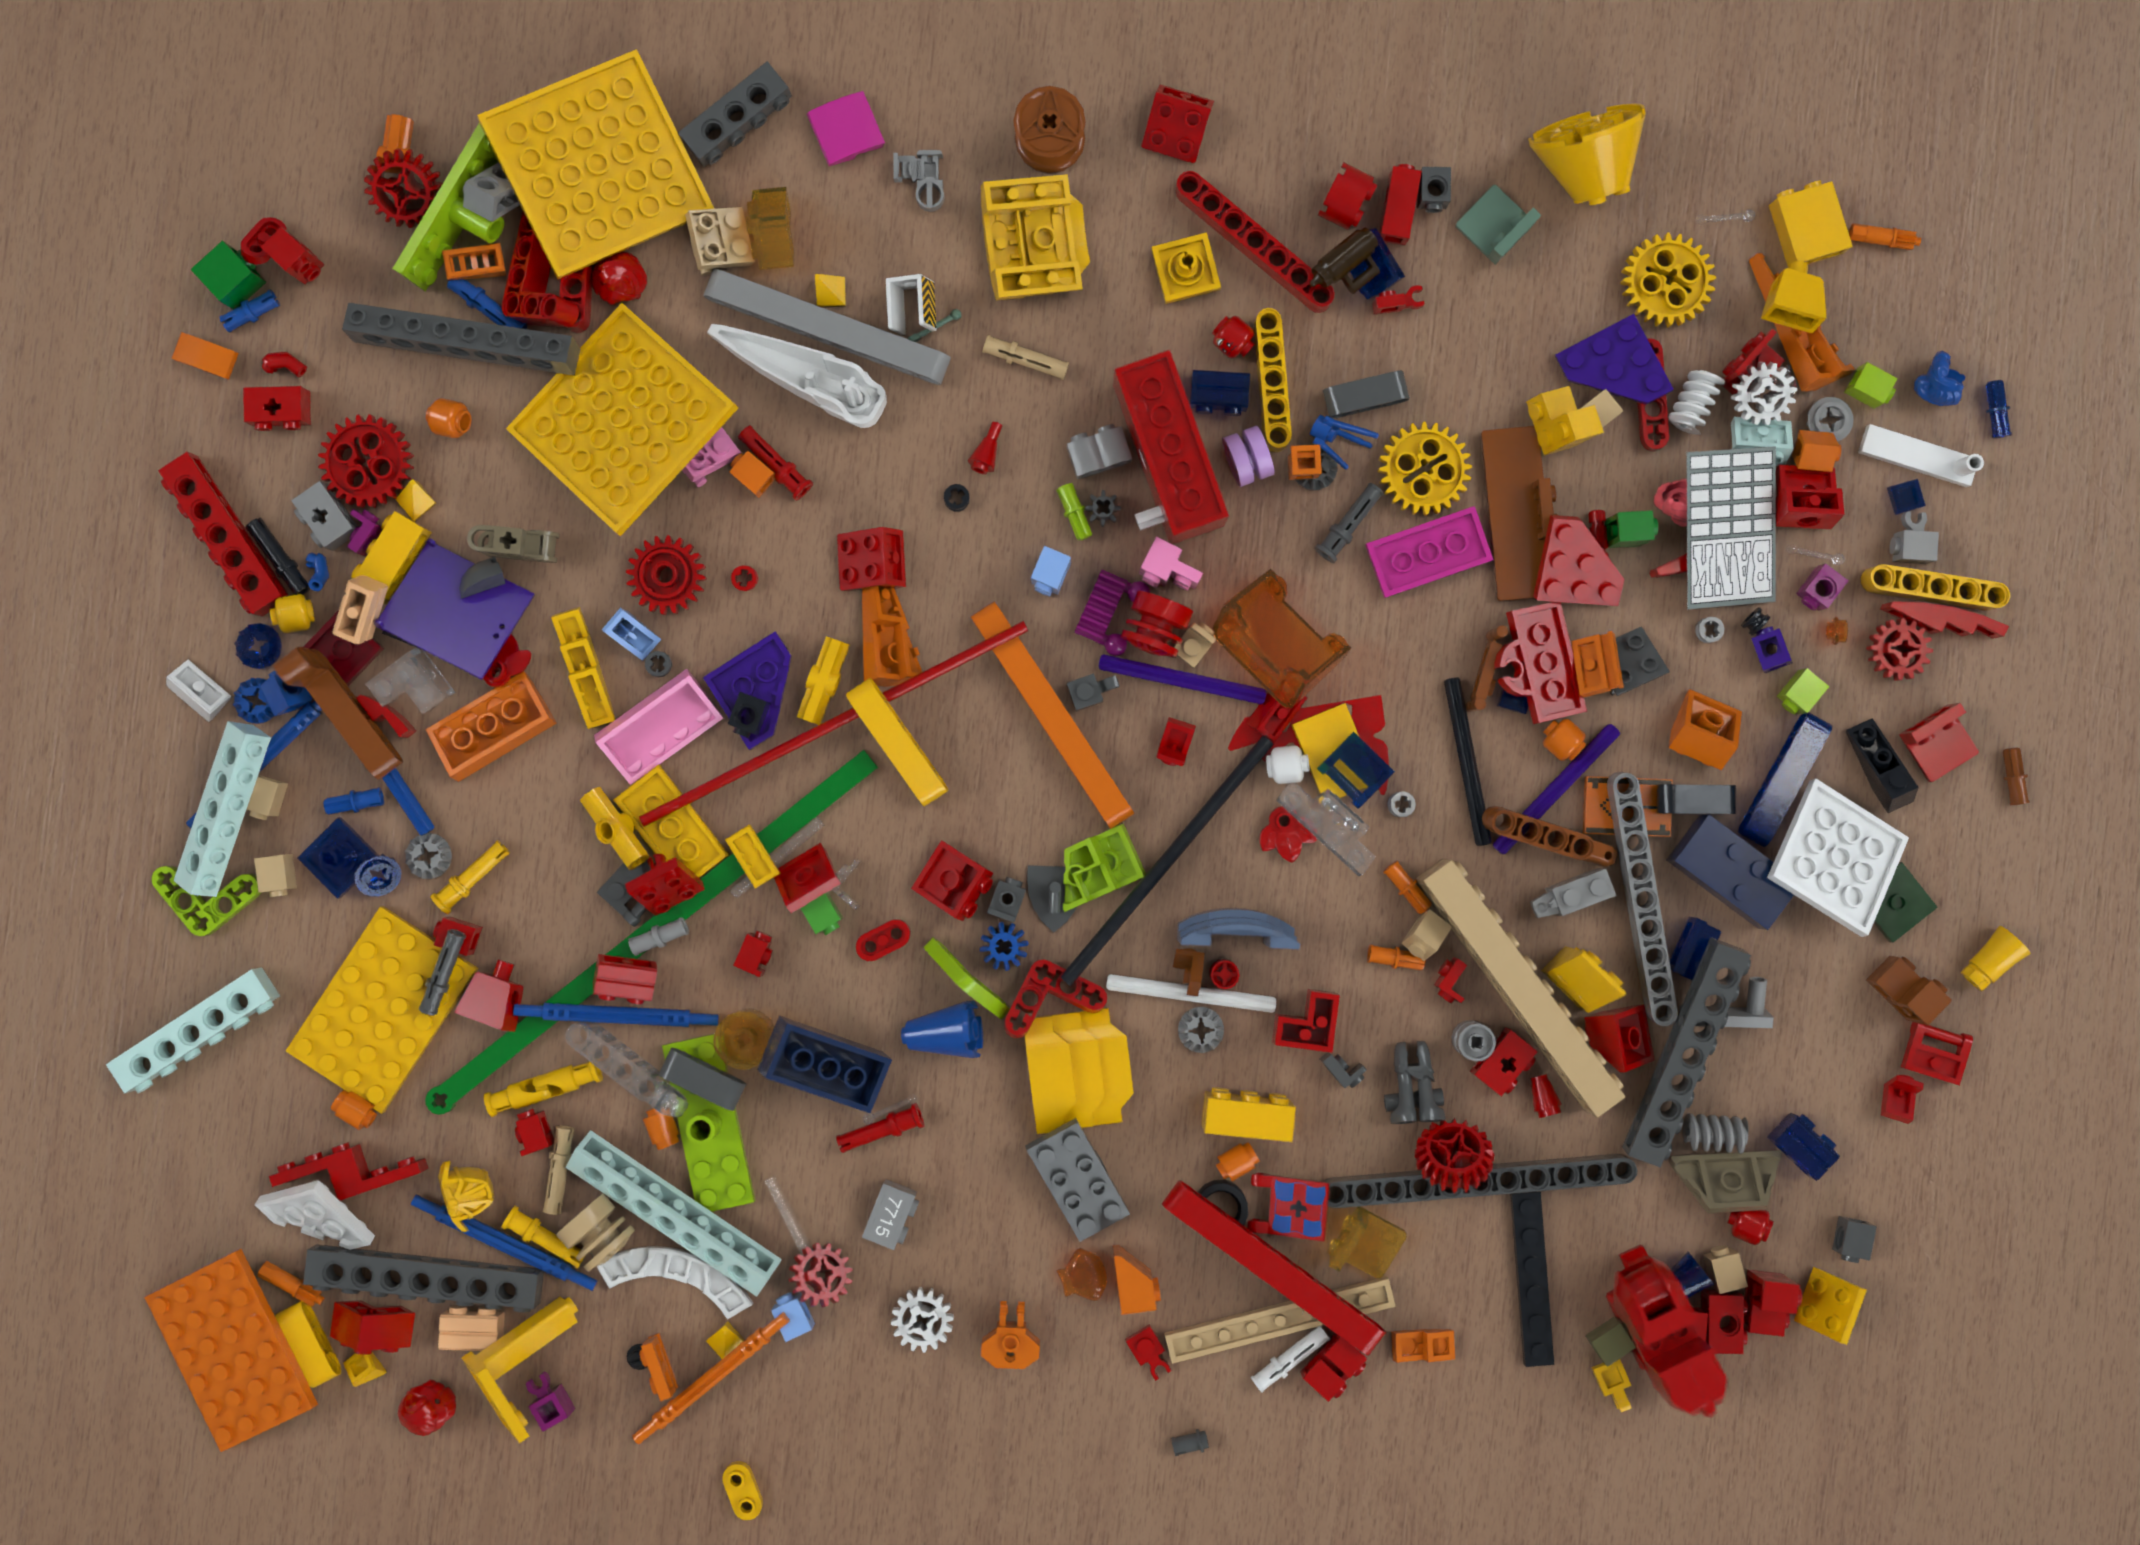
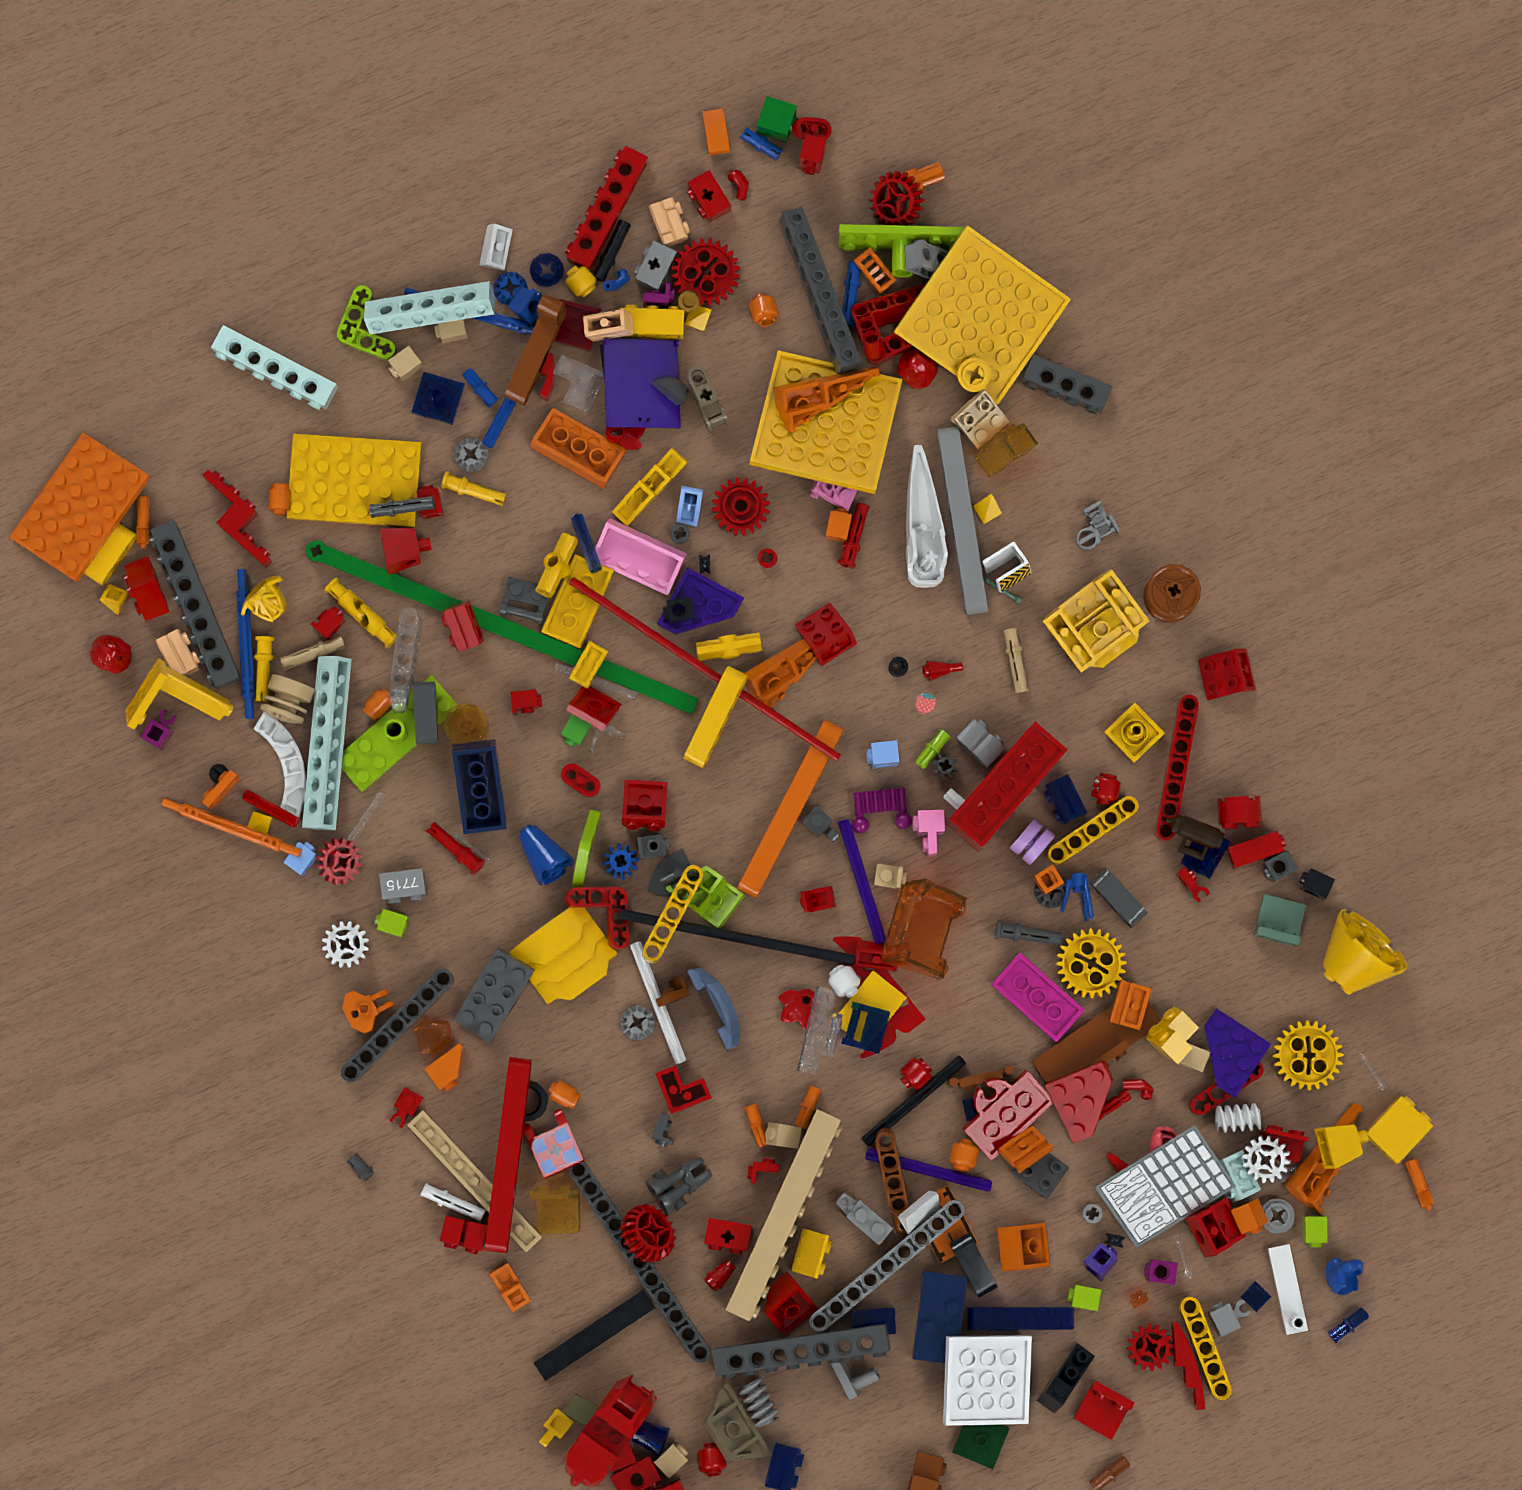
camera: 55 degrees right, 5 degrees down
(281, 471) = (669, 223): none -> light nougat brick
(317, 1213) = (199, 513): white plate -> none
(377, 886) = (432, 430): clear blue gear -> none
(387, 498) = (689, 300): none -> pearl gold tile
(580, 427) = (805, 399): none -> orange wedge
(608, 779) = (586, 543): none -> clear blue axle
(619, 1015) = (435, 634): blue axle -> none
(658, 936) = (502, 633): light grey pin -> none
(664, 200) = (983, 371): none -> yellow gear
(664, 884) = (538, 618): red plate -> none
(710, 654) = (704, 563): none -> black bush
(714, 1320) = (270, 808): none -> red axle
(744, 1491) = (168, 890): yellow plate -> none
(845, 128) = (1099, 460): dark pink slope -> none
(927, 1251) = (392, 923): none -> lime brick
(1016, 490) = (925, 703): none -> clear tile
(1050, 1325) = (408, 1022): none -> dark grey beam
(1097, 907) = (673, 903): none -> yellow beam
(1156, 624) = (887, 843): red wheel -> none
(1224, 974) = (680, 1016): red wheel -> none
(1248, 1115) = (599, 1082): yellow brick -> none
(1396, 797) = (858, 1078): light grey bush -> none
(1439, 742) = (915, 1073): none -> red head
(1473, 1040) = (730, 1205): light grey wheel -> none
(1477, 157) = (1316, 883): none -> black brick
(1499, 450) = (1130, 1005): none -> orange plate
(1596, 491) = (1140, 1085): none -> red arm
(1602, 826) = (920, 1211): none -> white slope
(1631, 529) = (1126, 1120): green brick -> none

